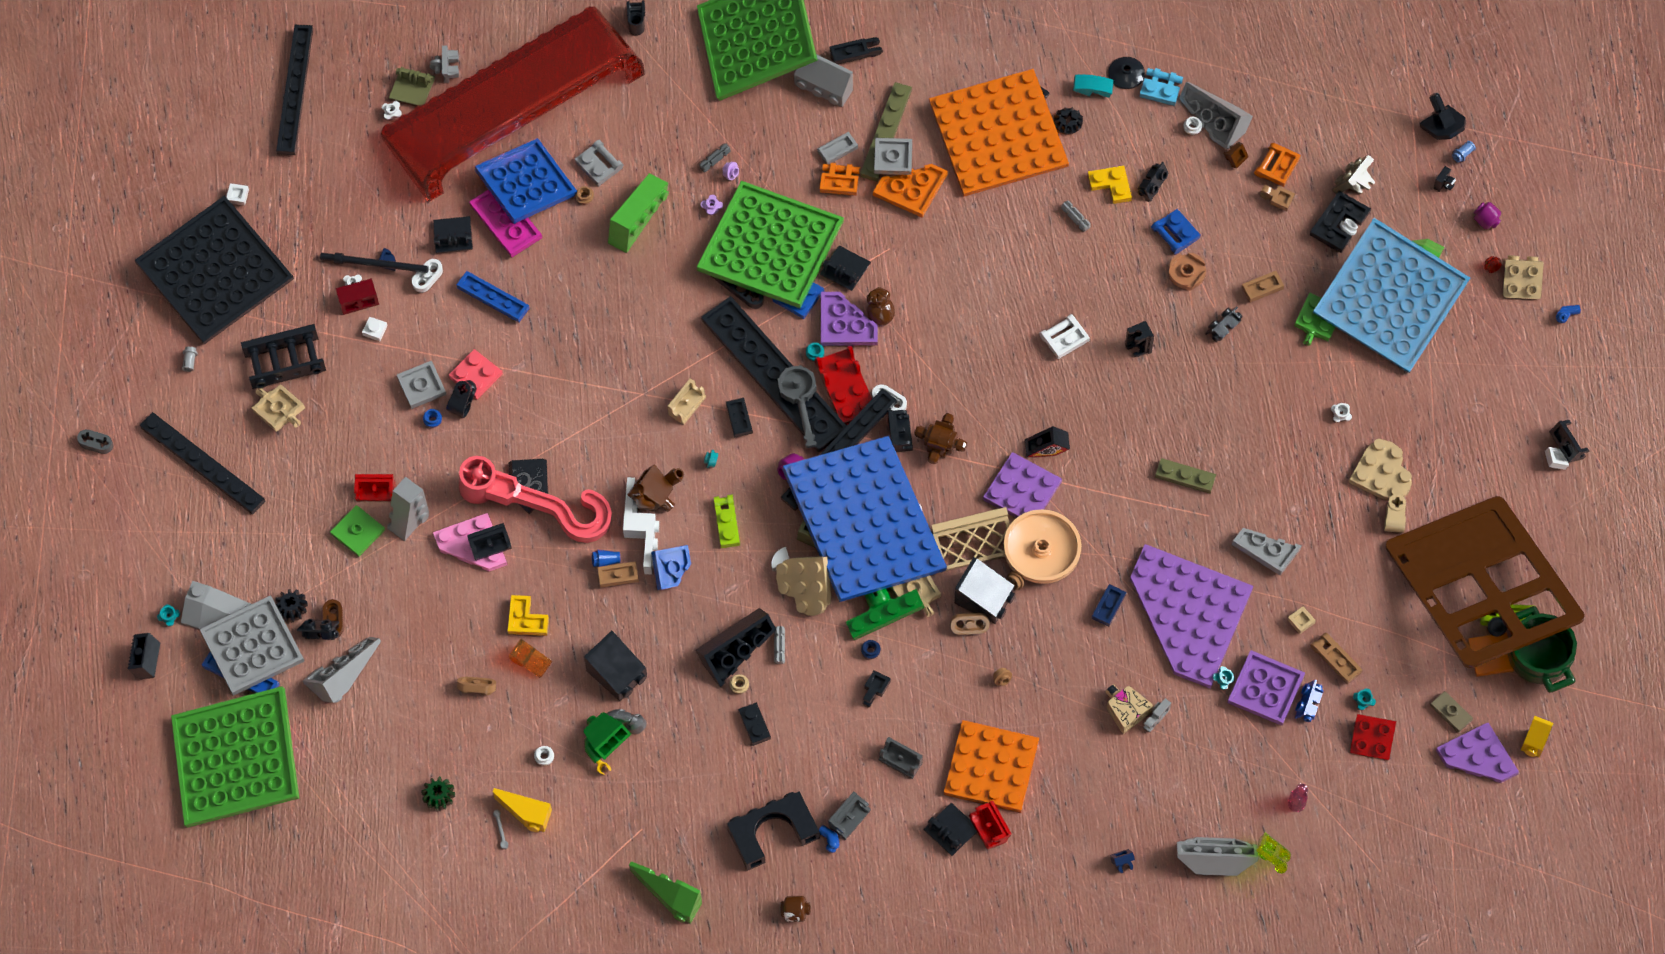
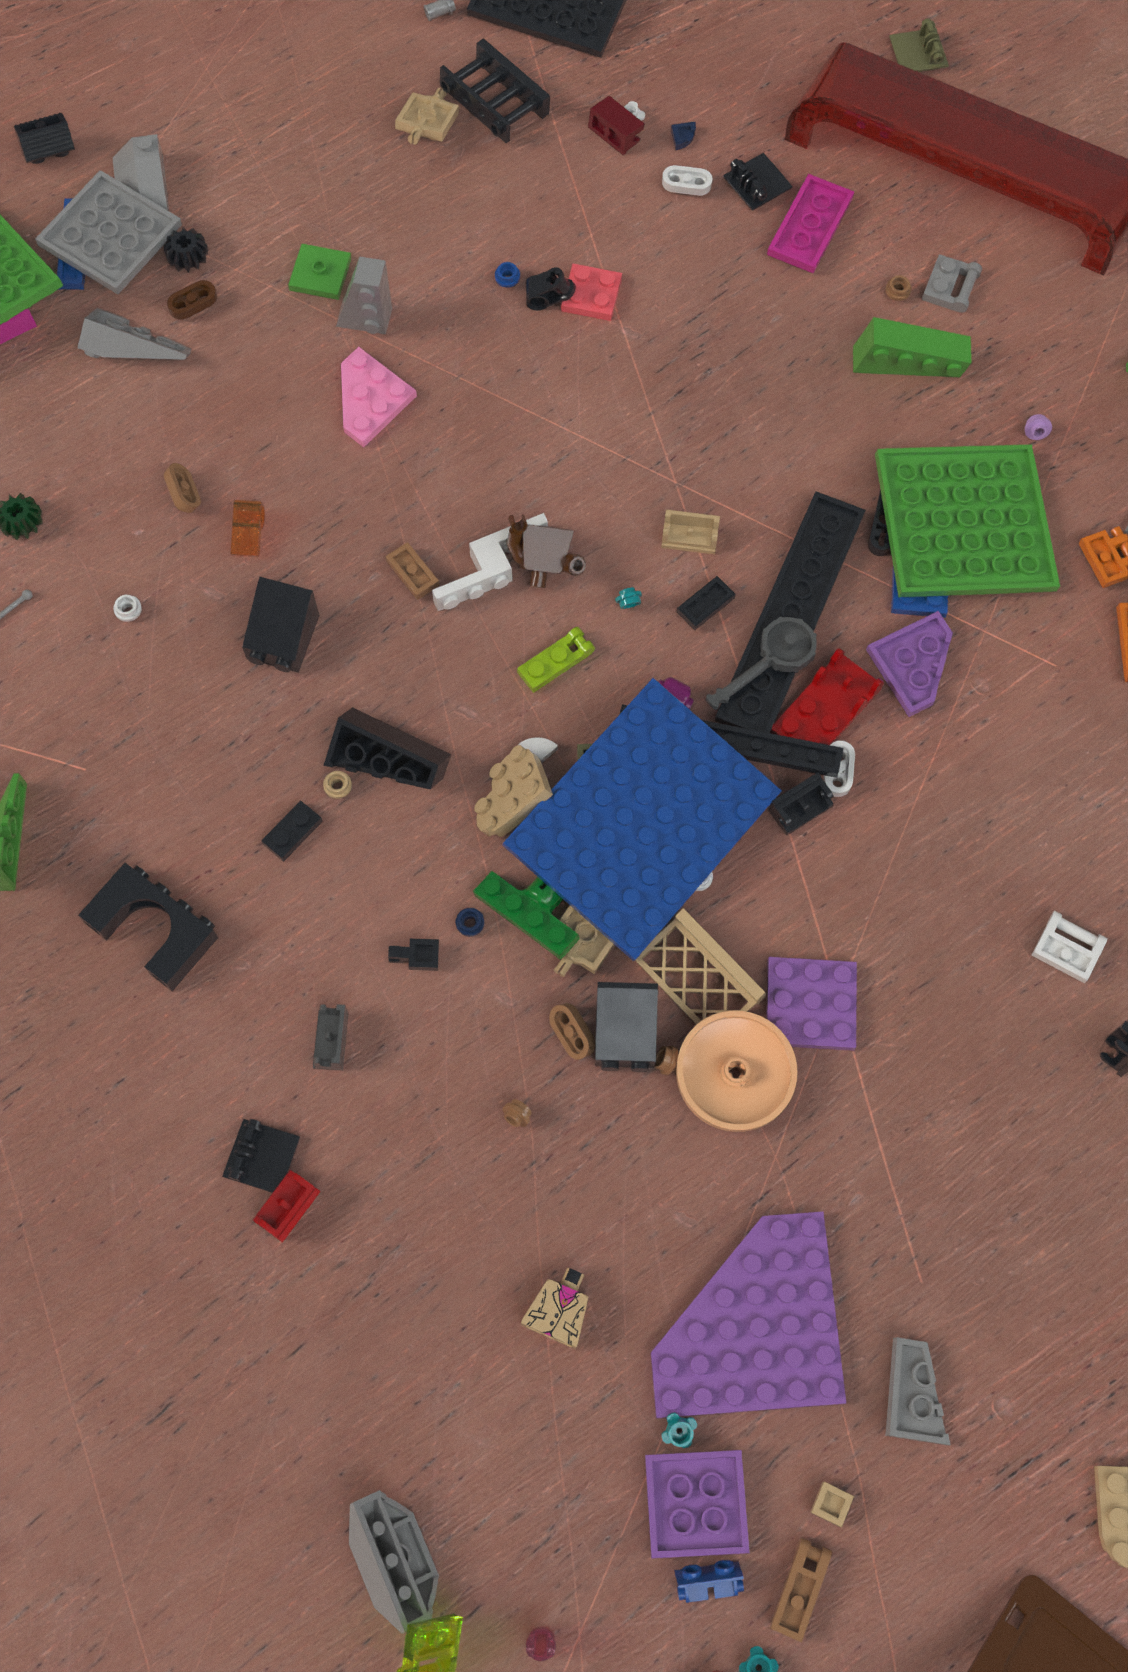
camera: 60 degrees right, 5 degrees up
(167, 609) = (113, 140): teal plate -> none
(202, 463) = (319, 84): black plate -> none
(312, 629) = (167, 288): black hinge -> none
(340, 258) = (655, 88): black bar -> none
(374, 329) = (587, 164): white plate -> none
(374, 487) = (383, 249): red hinge -> none
(392, 115) = (875, 44): white plate -> none
(421, 384) = (543, 242): light grey plate -> none
(448, 56) = (970, 63): light grey hips -> none
(482, 483) = (445, 364): coral piece -> none
(489, 541) = (371, 405): black hinge -> none
(492, 296) = (702, 259): blue plate -> none
(523, 622) = (294, 494): yellow plate -> none
(525, 180) = (873, 215): blue plate -> none
(530, 812) = (39, 624): yellow slope -> none
(531, 474) = (483, 416): black tile -> none
(605, 558) = (425, 545): blue cone -> none
(608, 733) = (184, 661): green torso -> none
(670, 566) = (453, 622): plate -> none
(711, 209) = (975, 436): lavender plate -> none
(714, 157) = (1044, 402): dark grey axle -> none
(779, 645) = (417, 806): light grey axle -> none
(795, 908) = (48, 1008): reddish brown head -> none
(814, 350) = (853, 646): teal plate -> none
(832, 838) = (174, 1006): blue arm -> none
(845, 268) = (992, 624): black hinge -> none
(849, 815) = (215, 1012): dark grey hinge -> none
(880, 307) = (962, 691): reddish brown hair -> none
(940, 438) = (819, 859): reddish brown piece -> none
(991, 766) = (380, 1165): orange plate -> none
(1047, 443) = (896, 1002): black slope -> none
(1109, 605) = (702, 1207): dark blue plate -> none
(1121, 858) = (324, 1420): dark blue tile -> none
(1159, 712) = (577, 1361): light grey plate -> none
(1185, 475) = (962, 1218): olive plate -> none
(1395, 517) = (1075, 1569): tan piece -> none

